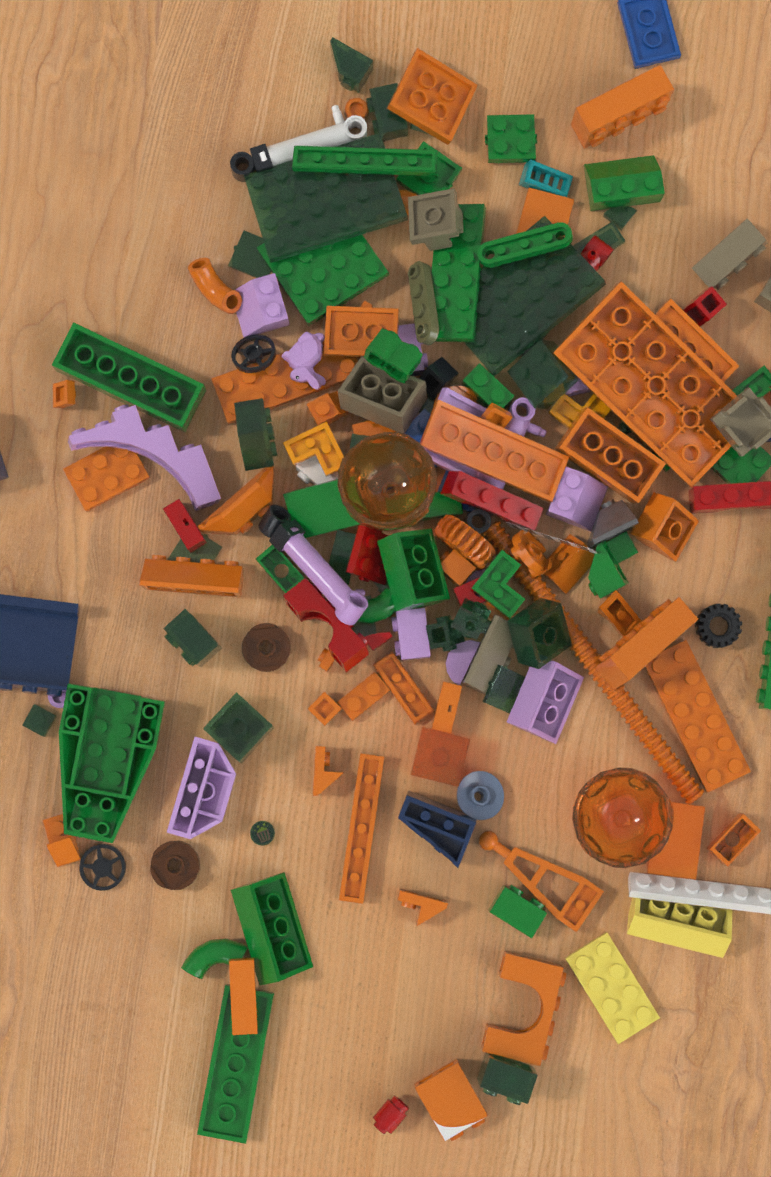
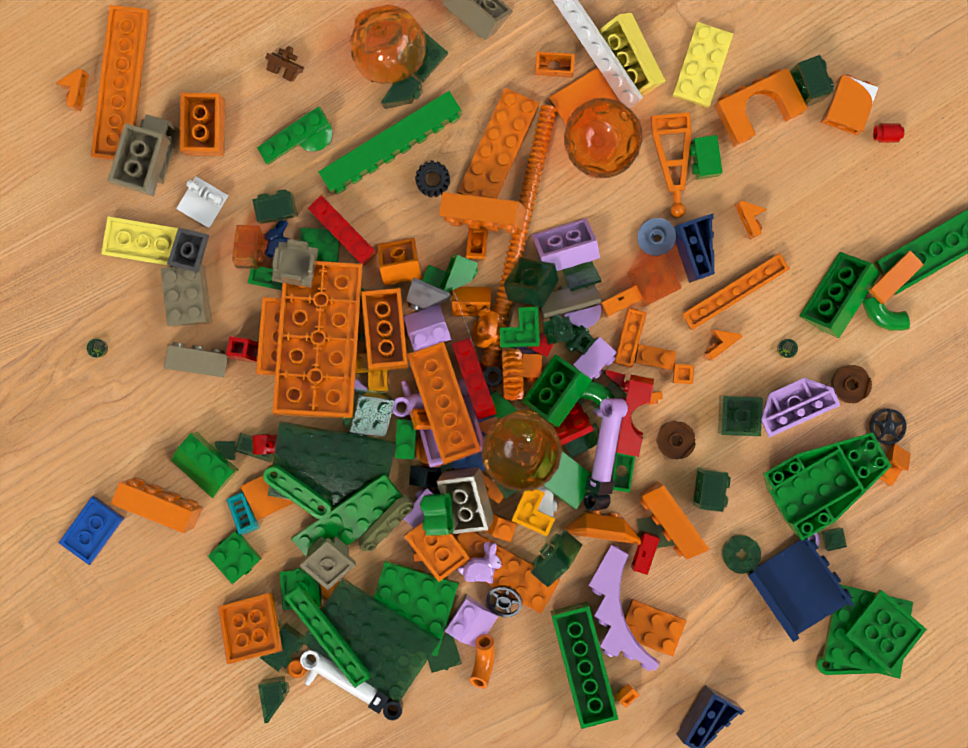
camera: 120 degrees left, 5 degrees up
(102, 603) = (733, 546): none -> clear green plate

